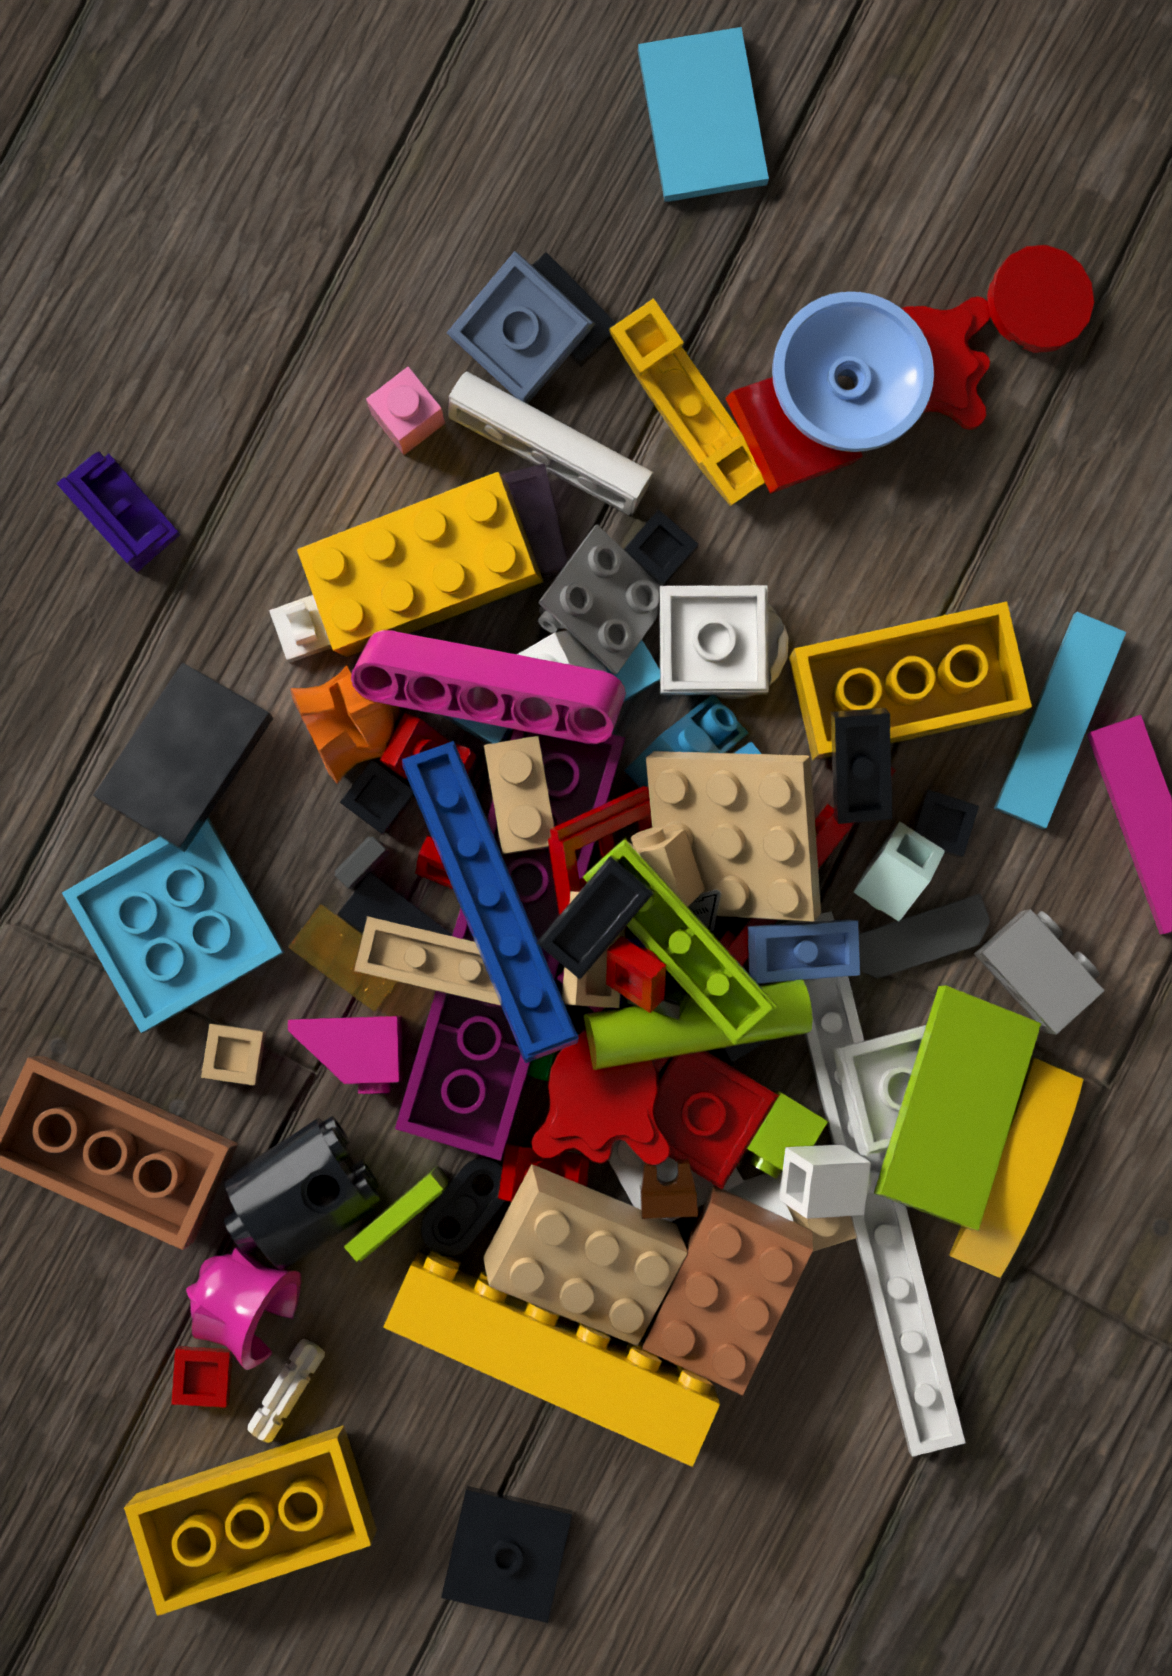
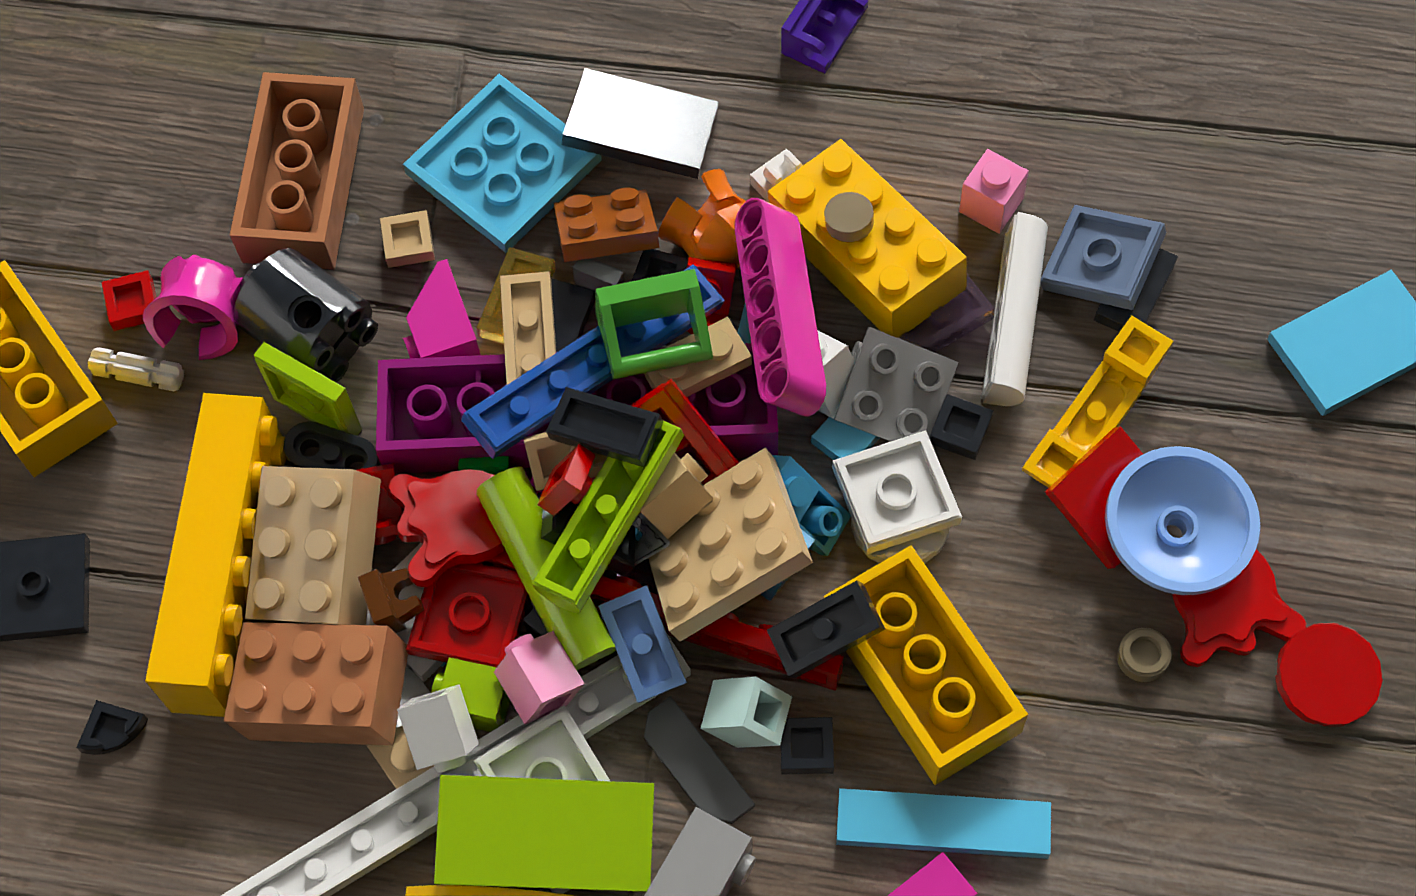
camera: 75 degrees right, 20 degrees down
(302, 835) = (606, 224): none -> dark orange plate
(411, 576) = (849, 217): none -> dark tan tile
(453, 827) = (647, 301): none -> bright green tile
(687, 1511) = (110, 729): none -> black tile
(805, 1066) = (538, 676): none -> bright pink brick
(957, 464) = (1144, 654): none -> dark tan tile

